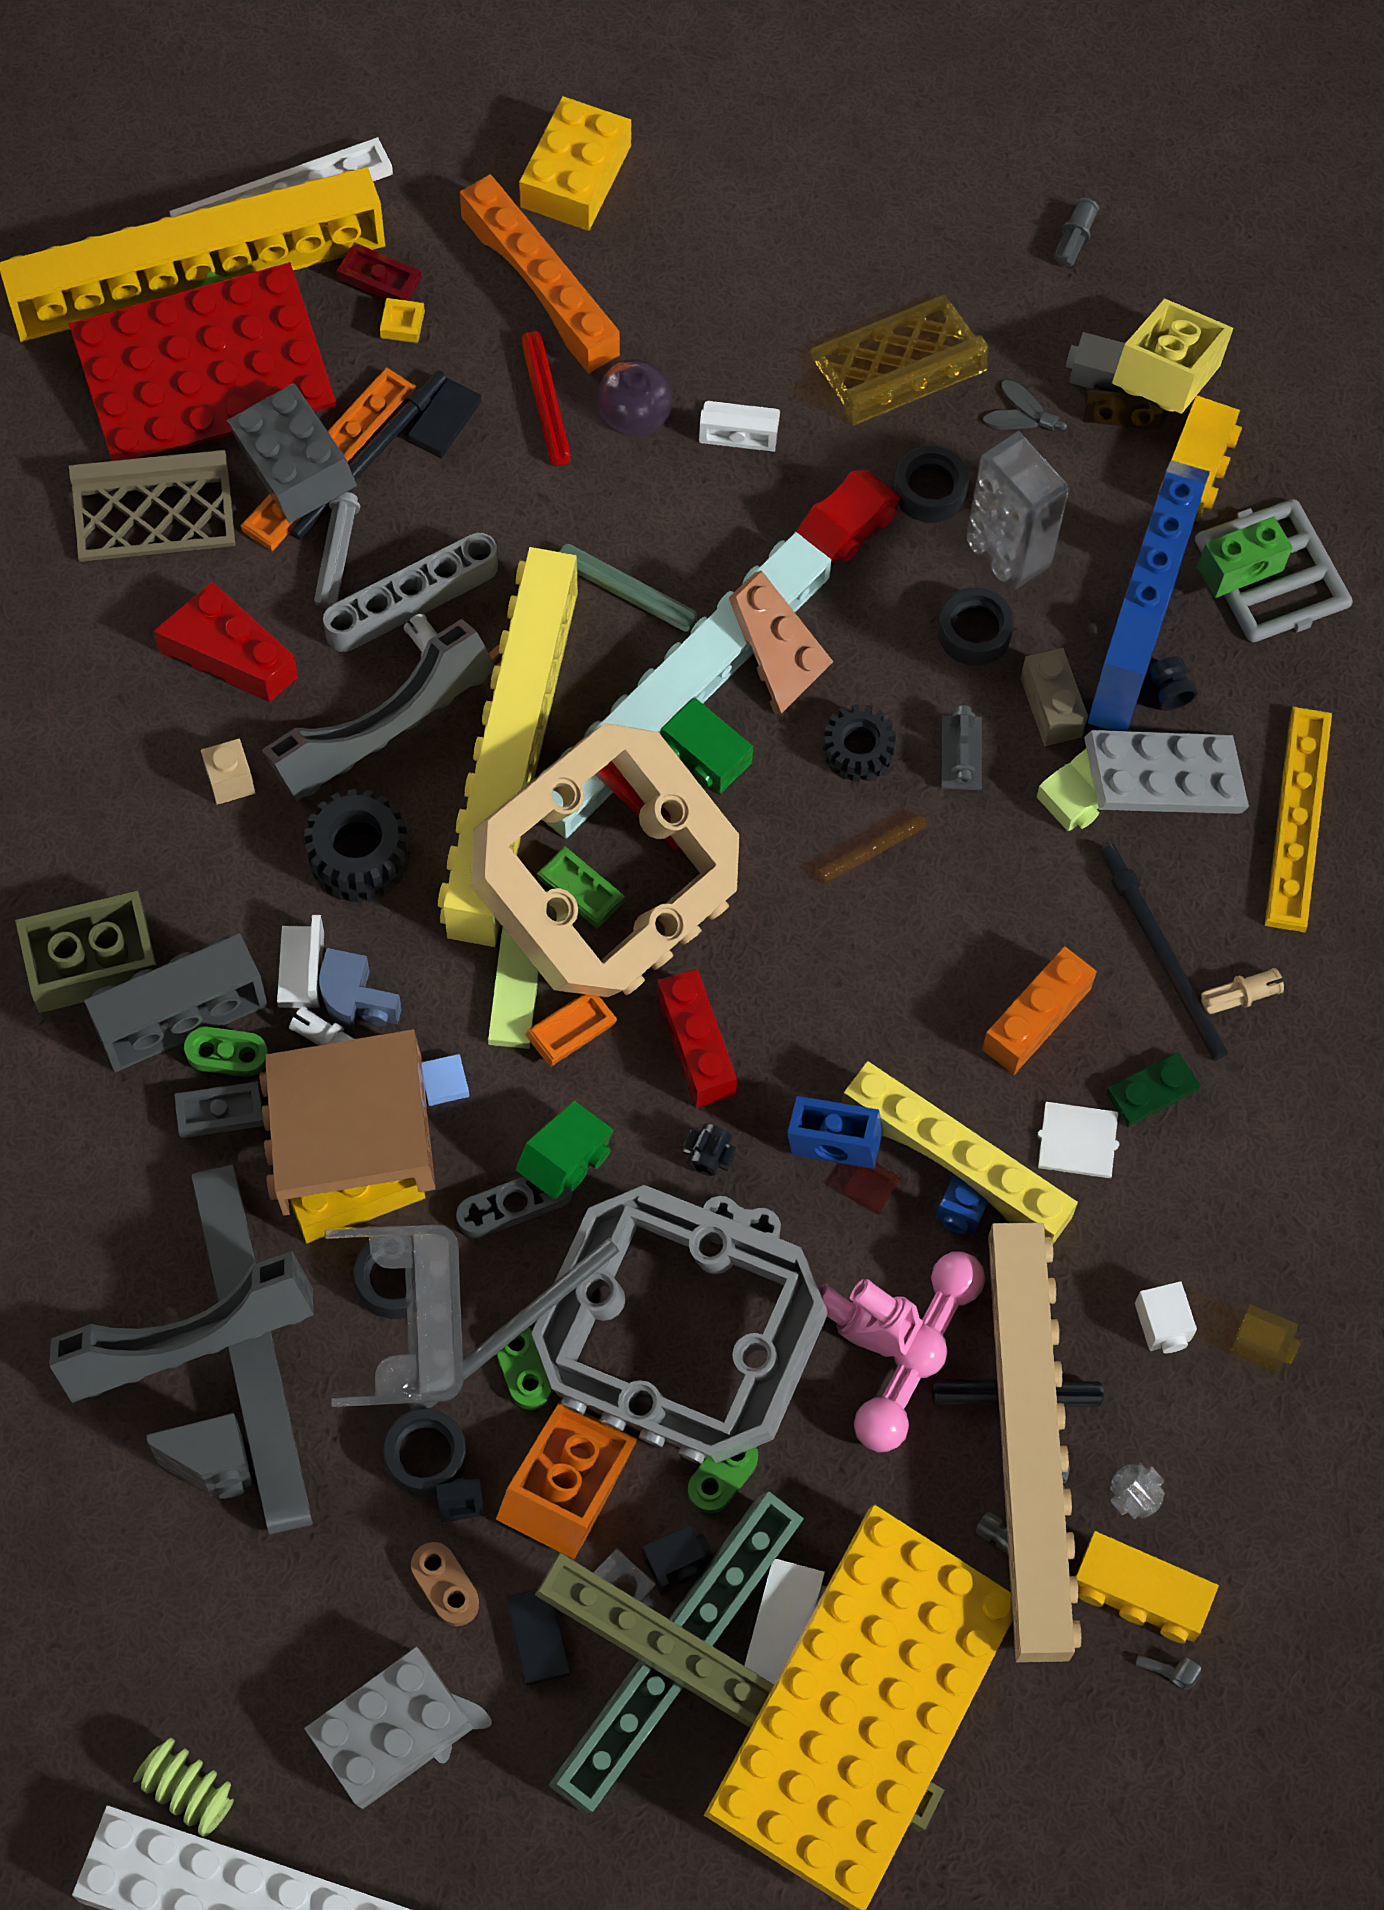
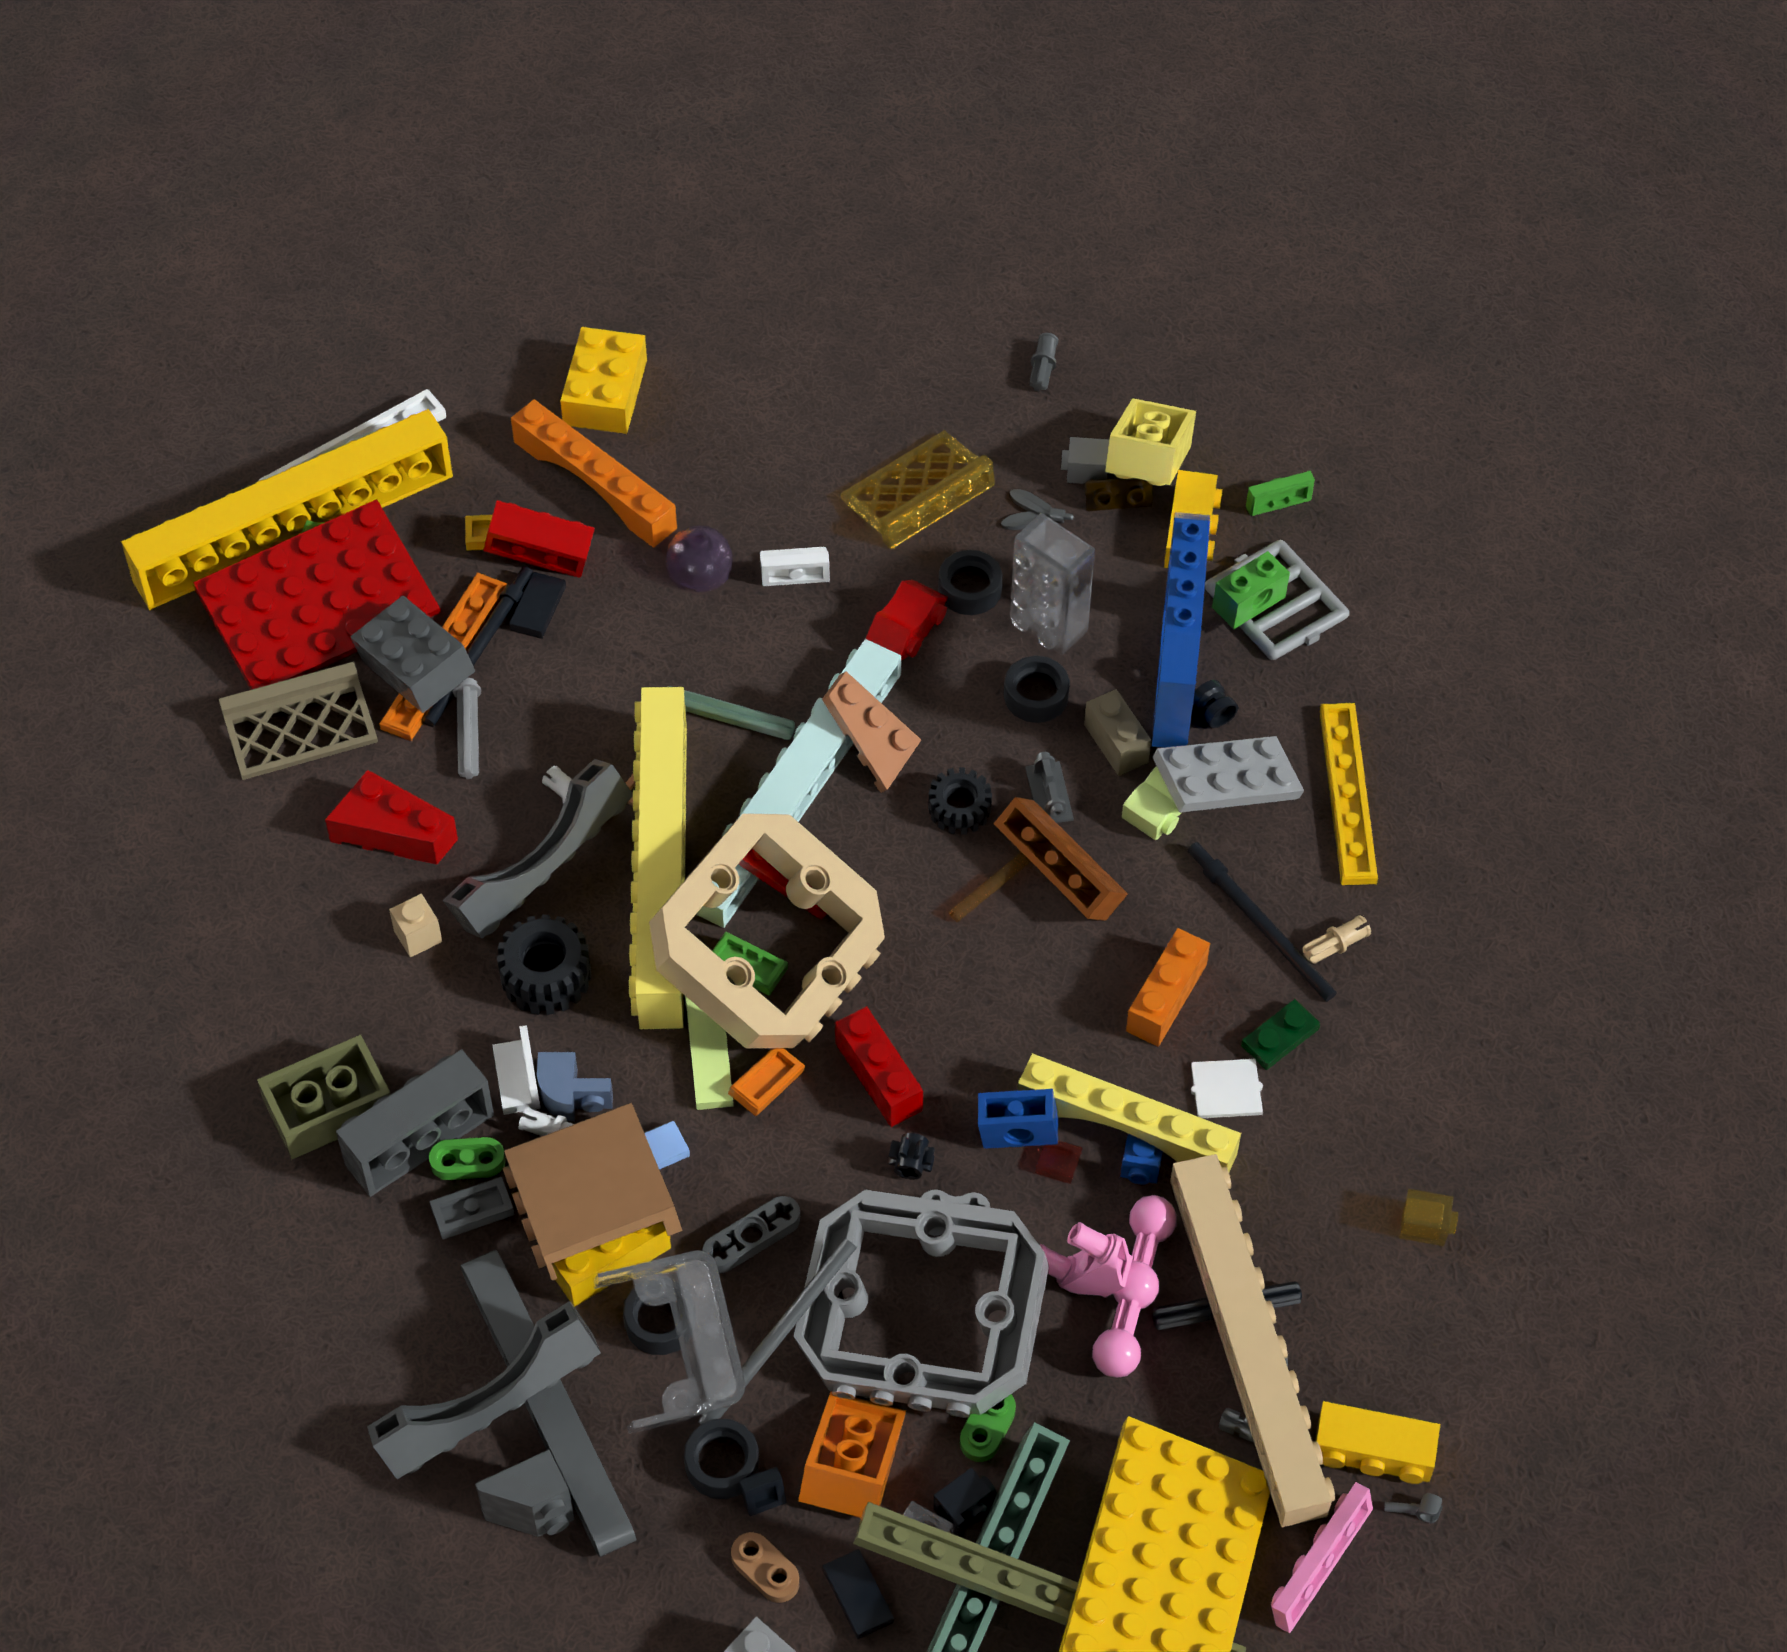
camera: 10 degrees left, 10 degrees down
(378, 273) = (453, 498): dark red plate -> none
(420, 576) = (532, 762): light grey beam -> none
(460, 341) = (538, 539): none -> red brick
(525, 1365) = (790, 1368): bright green plate -> none
(546, 398) = (622, 574): red axle -> none
(565, 1150) = (787, 1179): green brick -> none
(707, 746) = (833, 824): green brick -> none
(784, 1612) = (1070, 1526): white brick -> none
(954, 836) = (1060, 859): none -> dark orange brick
(1041, 1716) = (1328, 1547): none -> bright pink plate
(1137, 1490) = (1350, 1363): clear gear -> none
(1166, 1317) = (1338, 1216): white brick -> none
(1307, 443) = (1280, 493): none -> bright green plate

